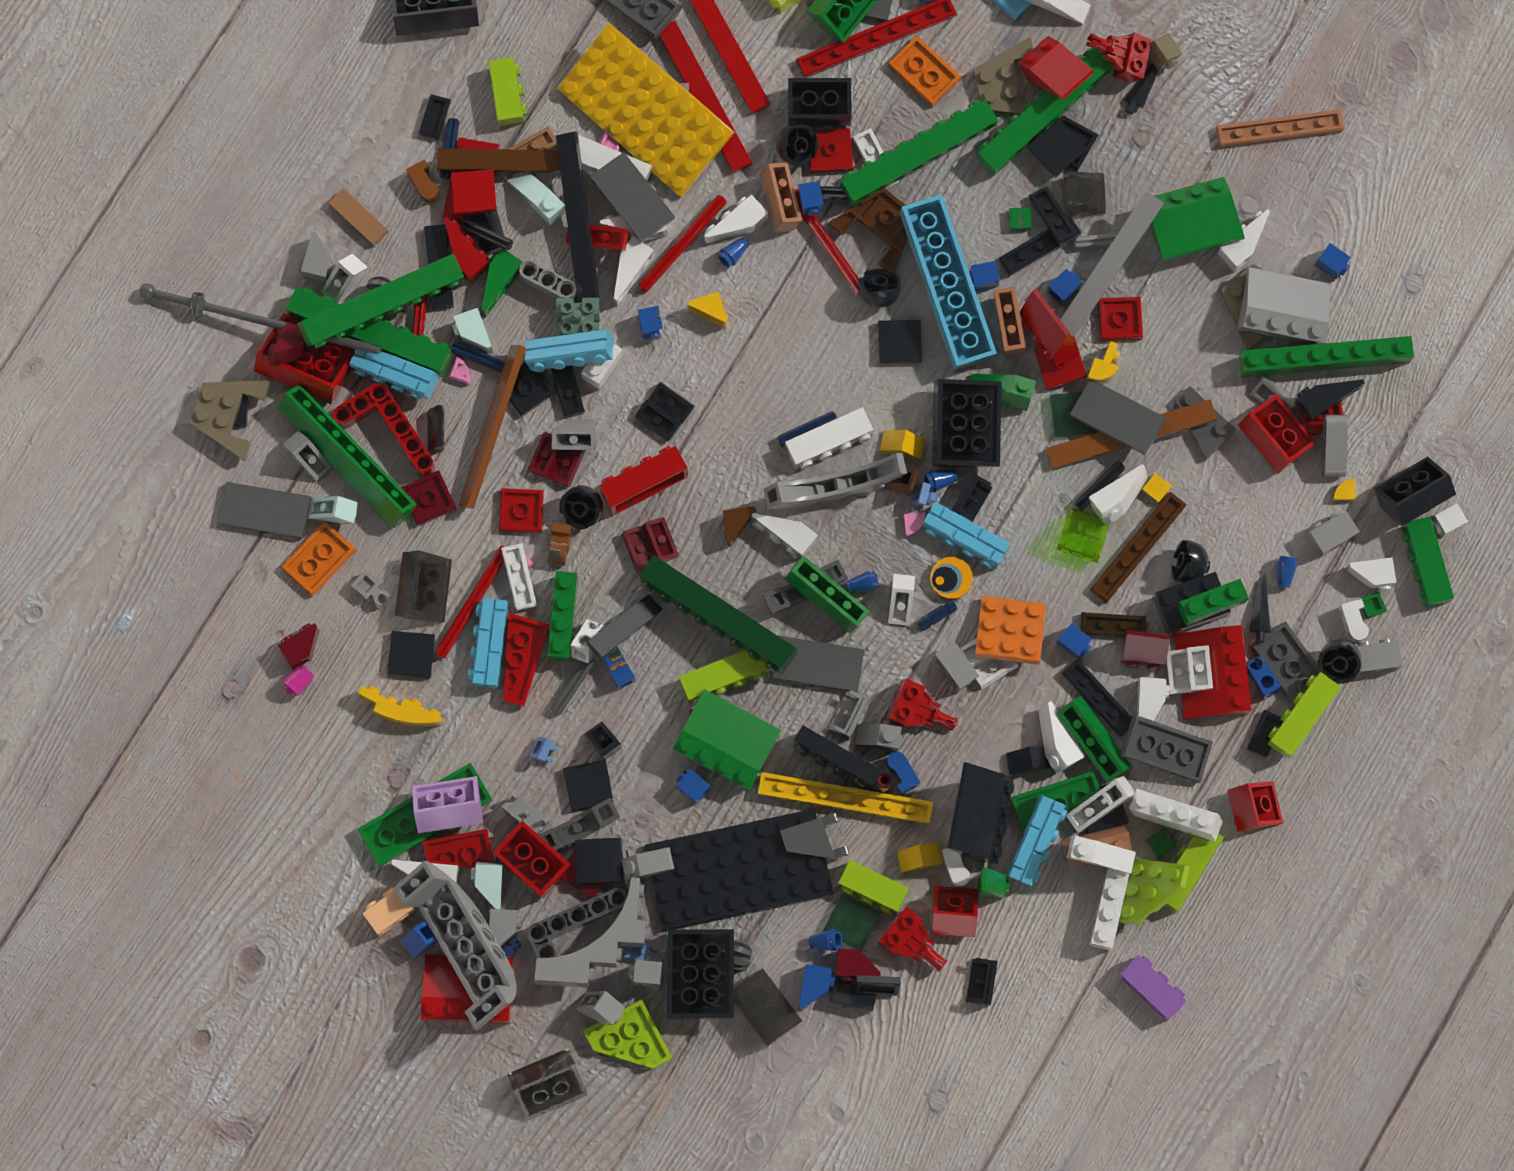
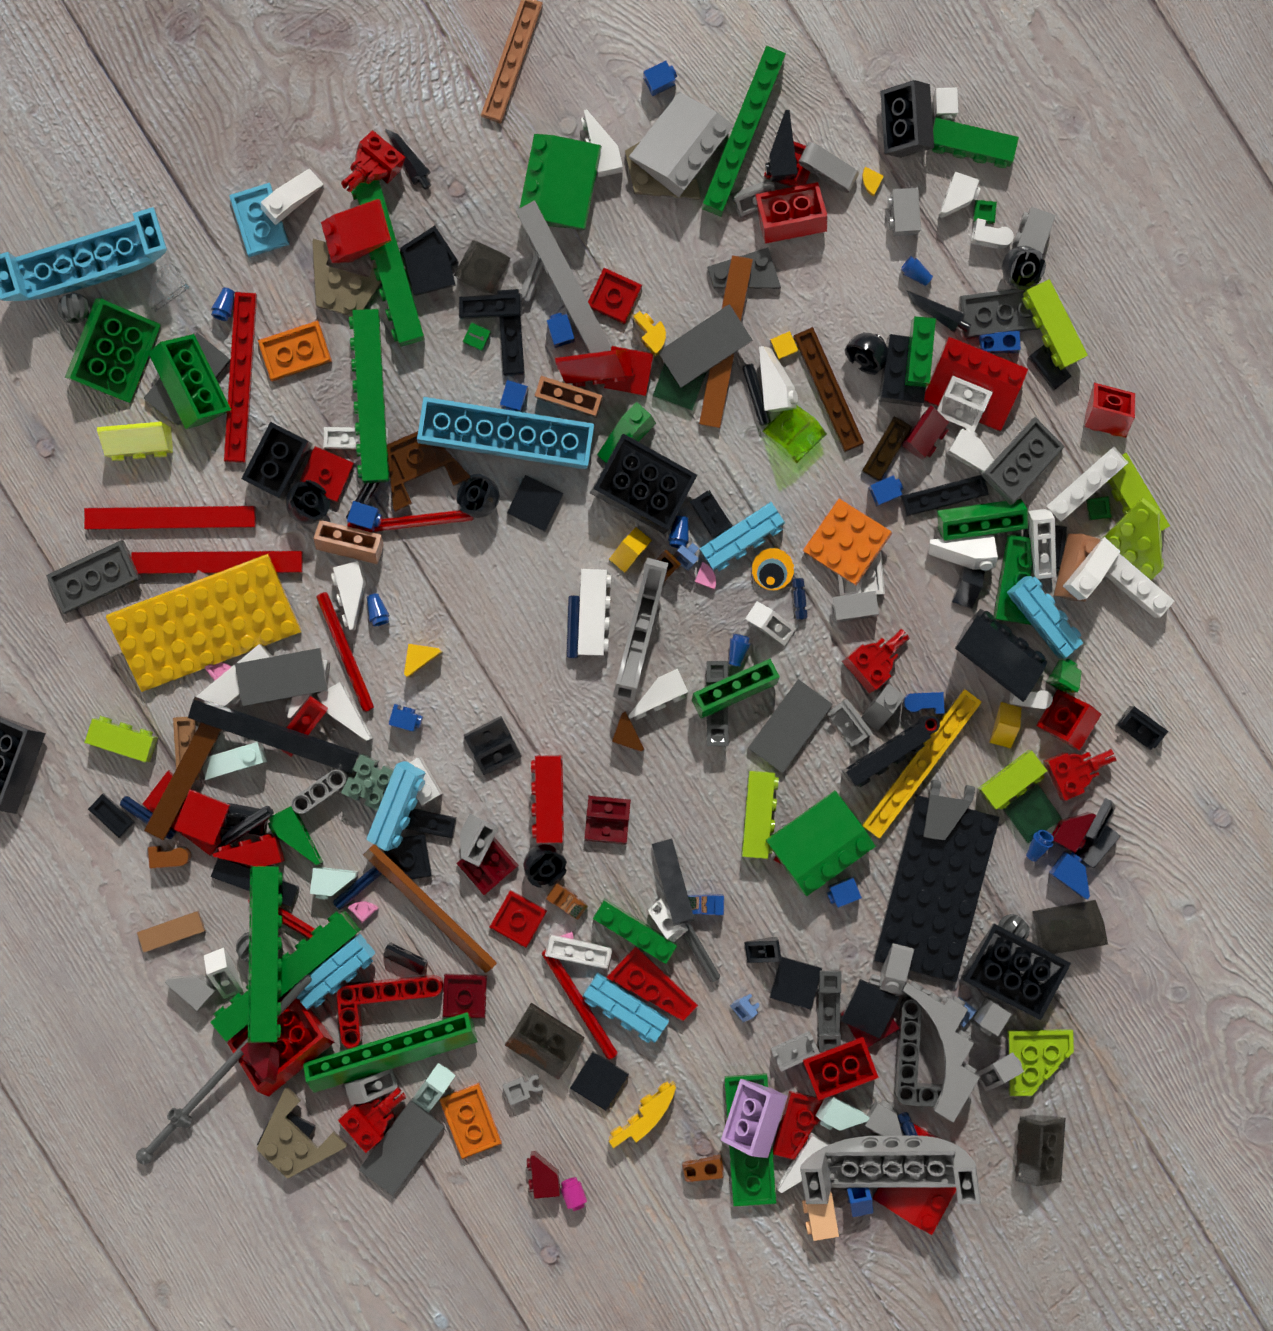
camera: 60 degrees left, 10 degrees up
(274, 467) = (367, 1122): none -> red brick
(378, 786) = (703, 1169): none -> dark orange leg
(718, 615) = (706, 794): dark green brick -> none
(1153, 987) = (1221, 582): medium lavender brick -> none
(1164, 52) = (389, 124): dark tan brick -> none

